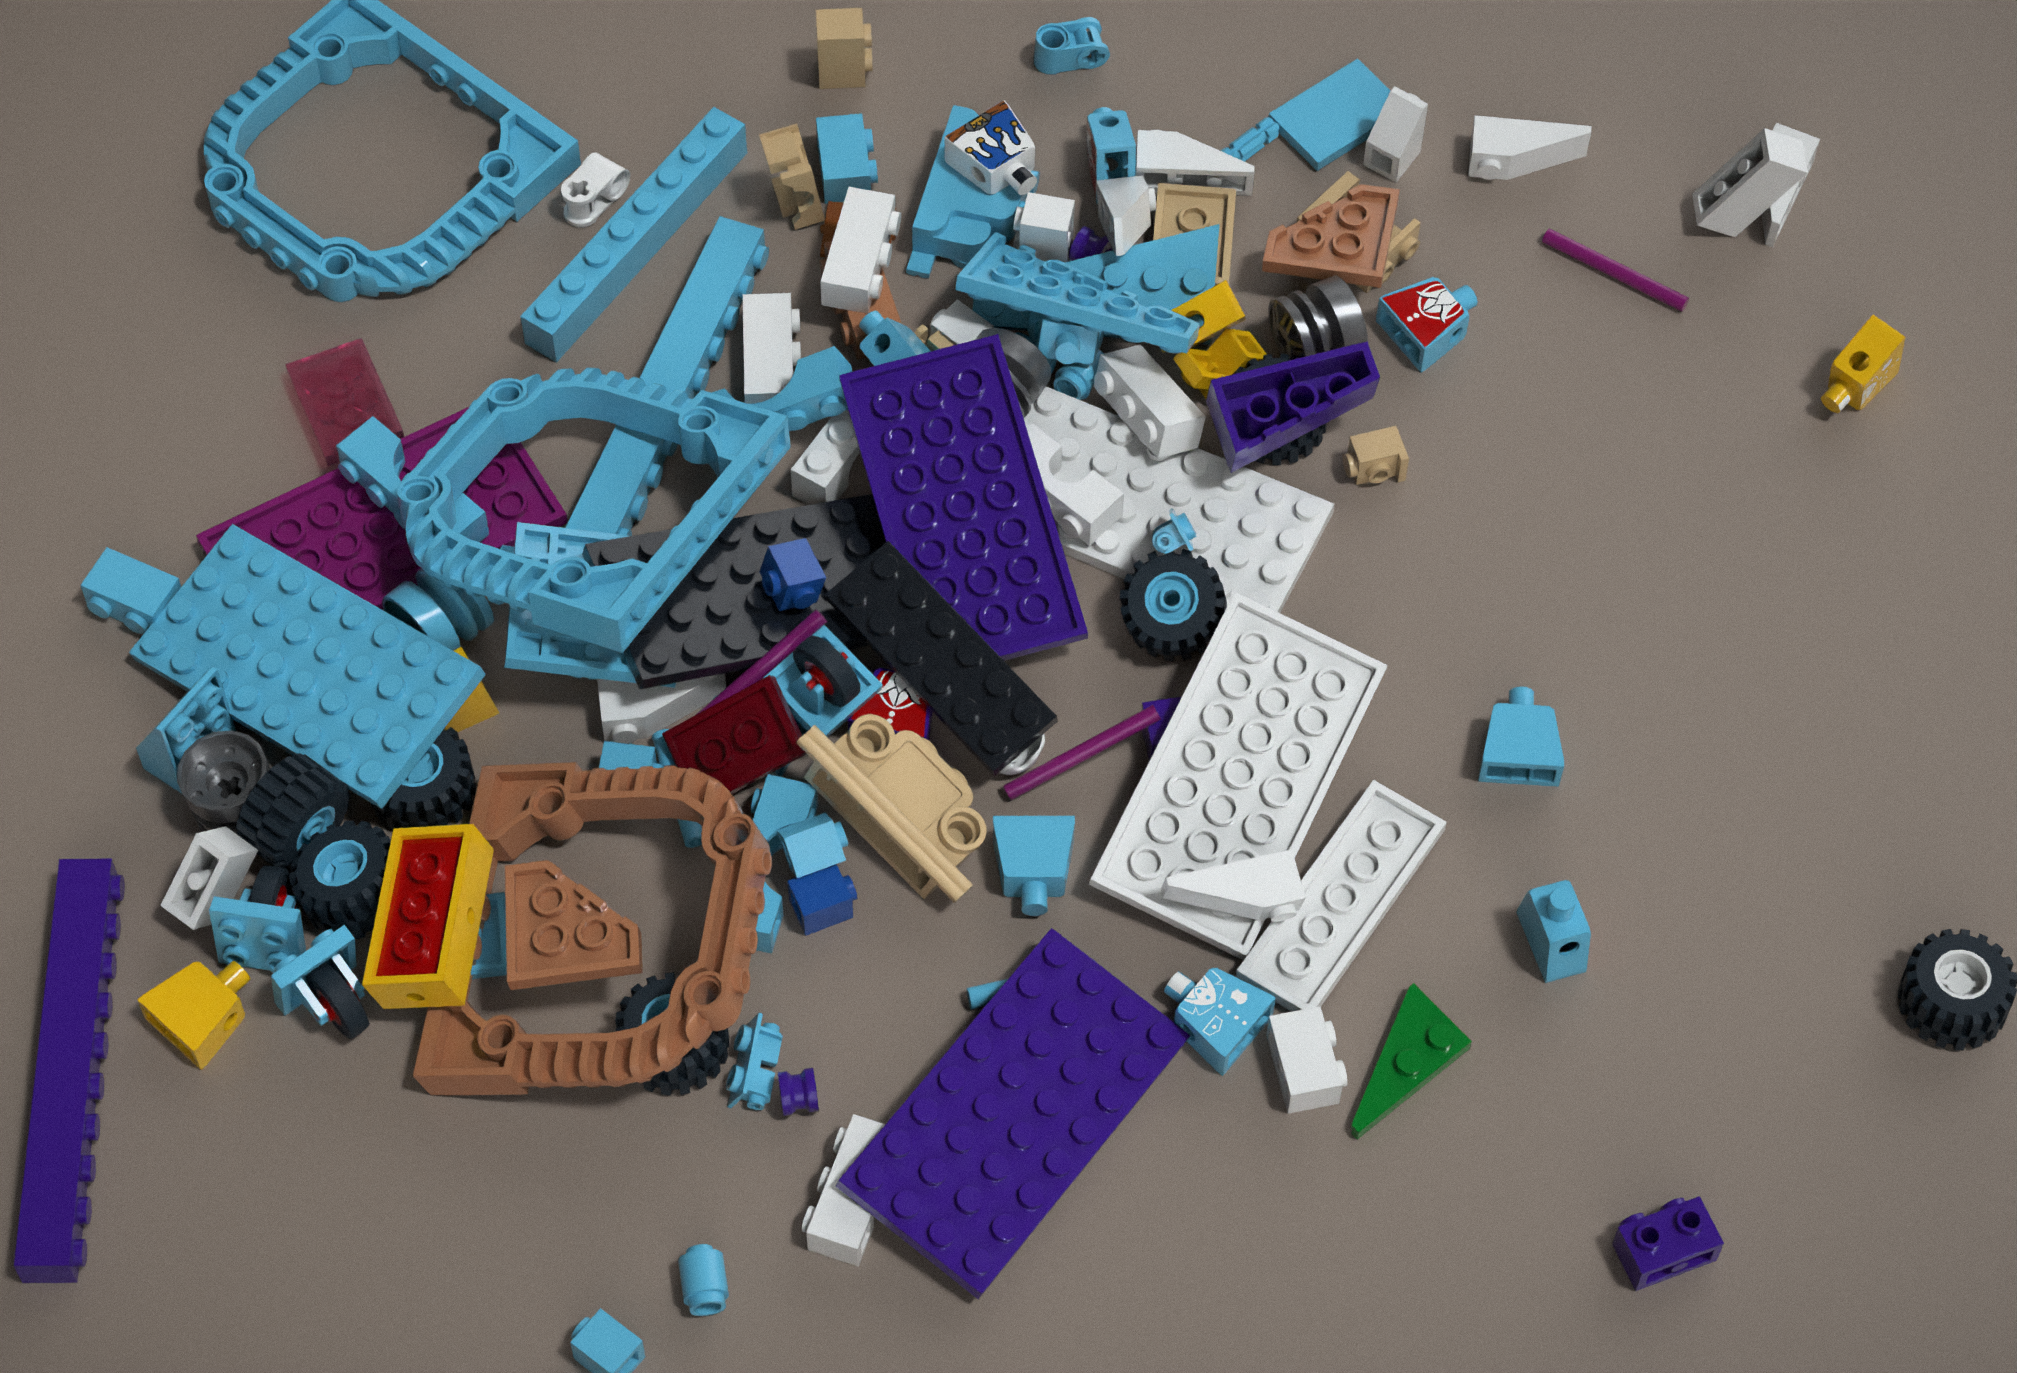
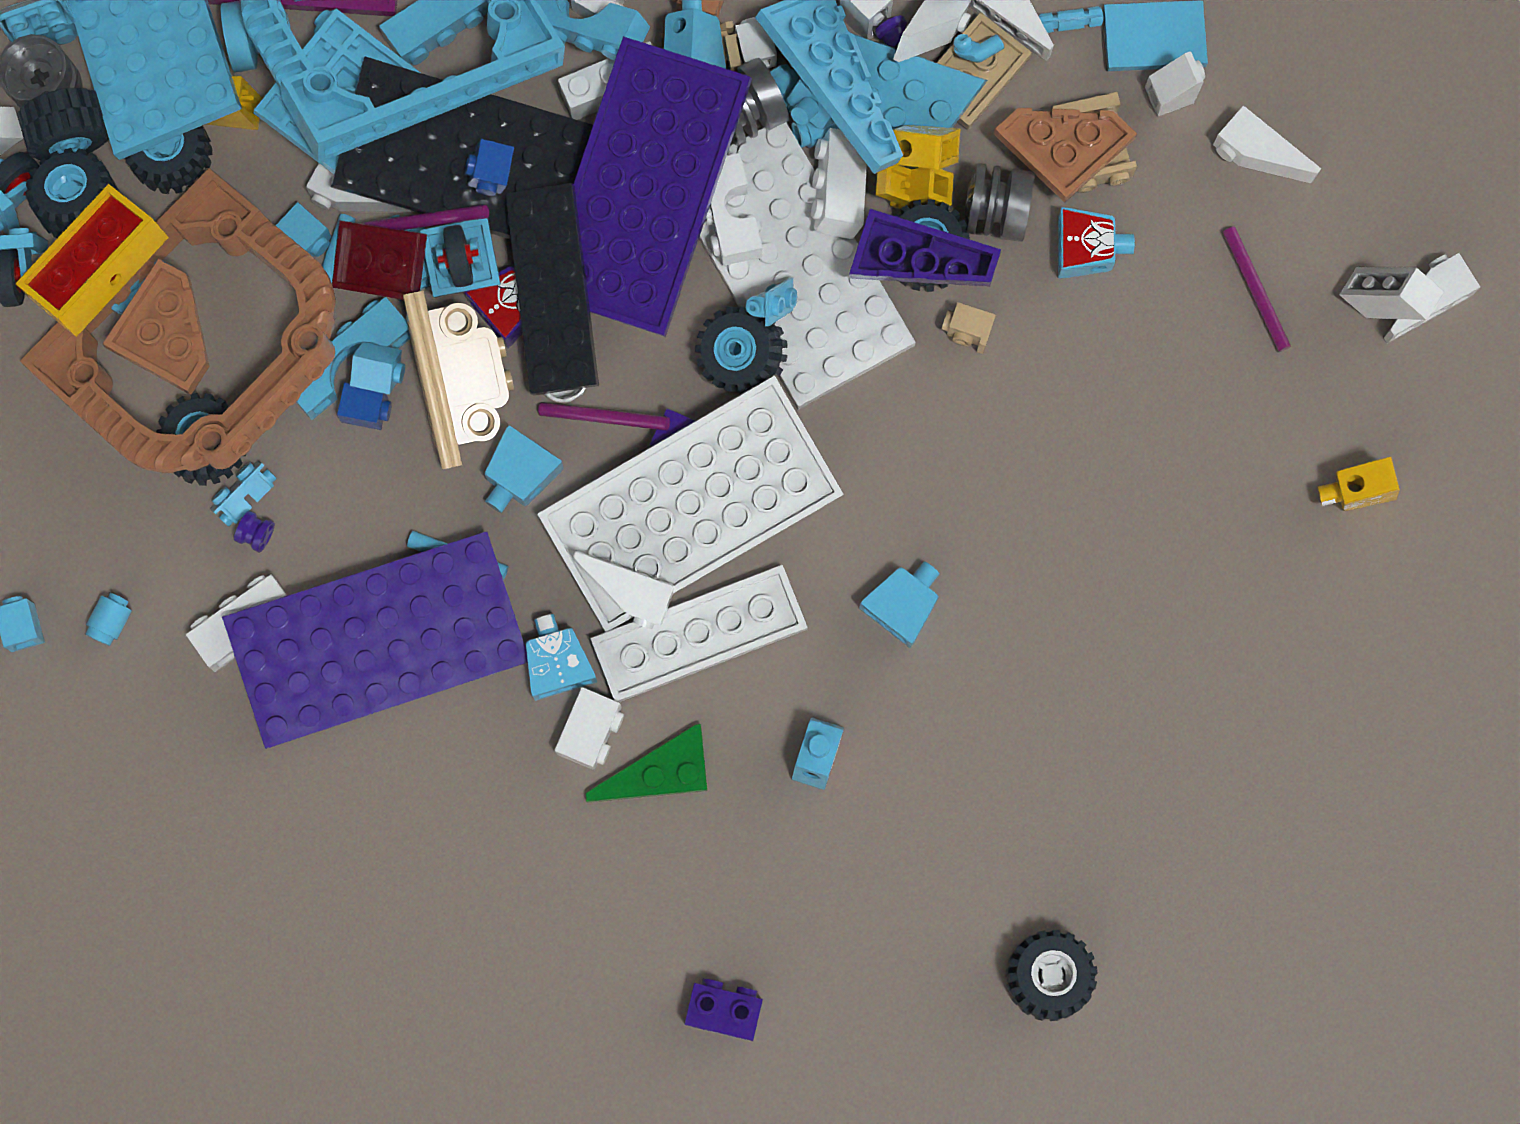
camera: 35 degrees right, 20 degrees up
(1175, 217) = (975, 51): none -> medium azure arm

